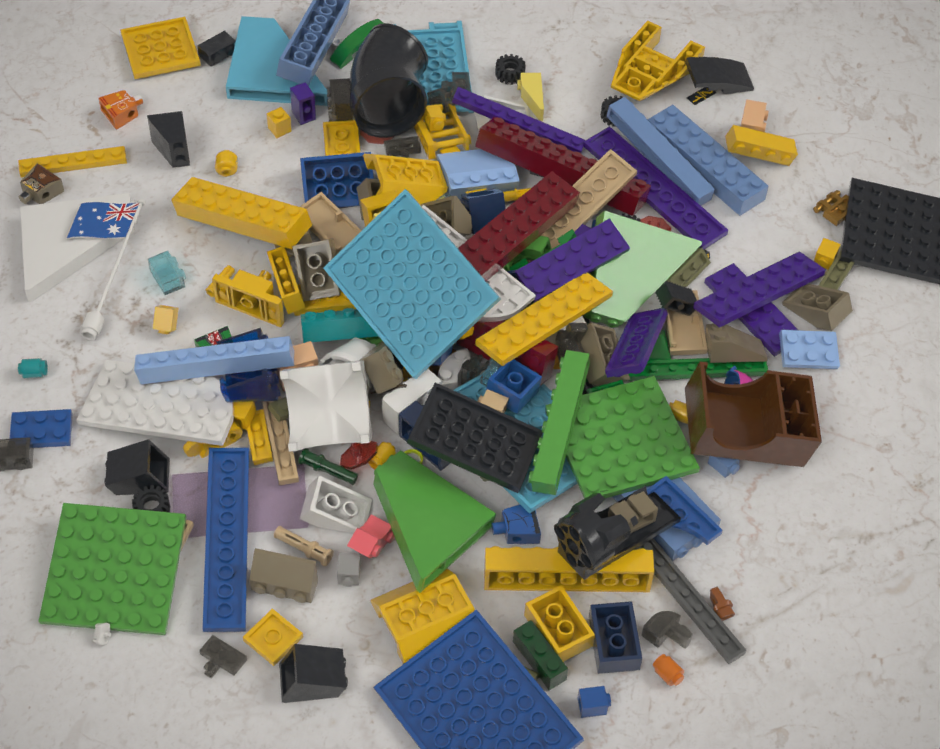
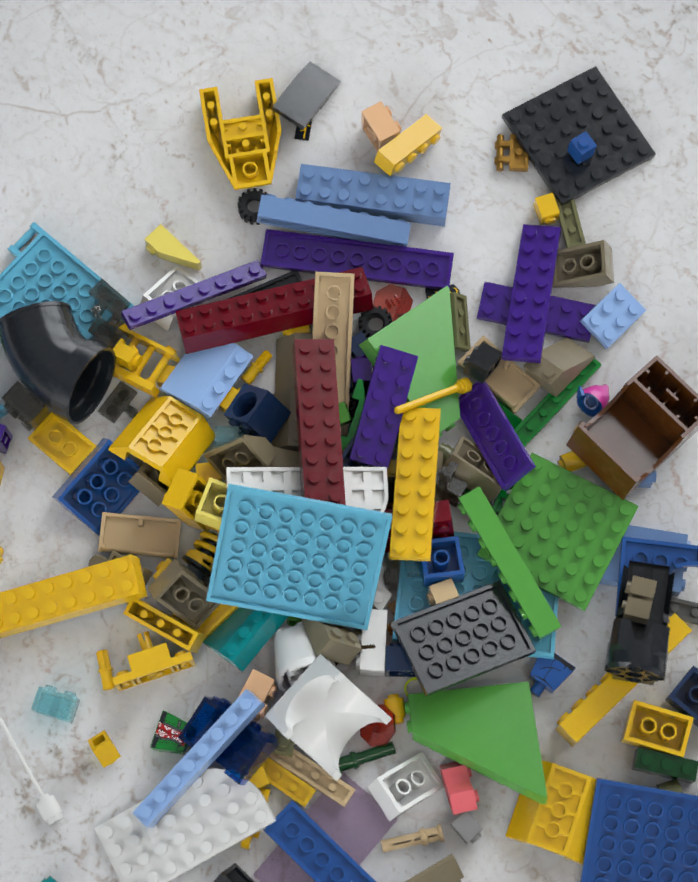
camera: 40 degrees left, 20 degrees up
(509, 62) = (126, 228): black tyre -> none
(646, 301) = (461, 386): none -> yellow piece
(890, 230) = (581, 147): none -> blue brick

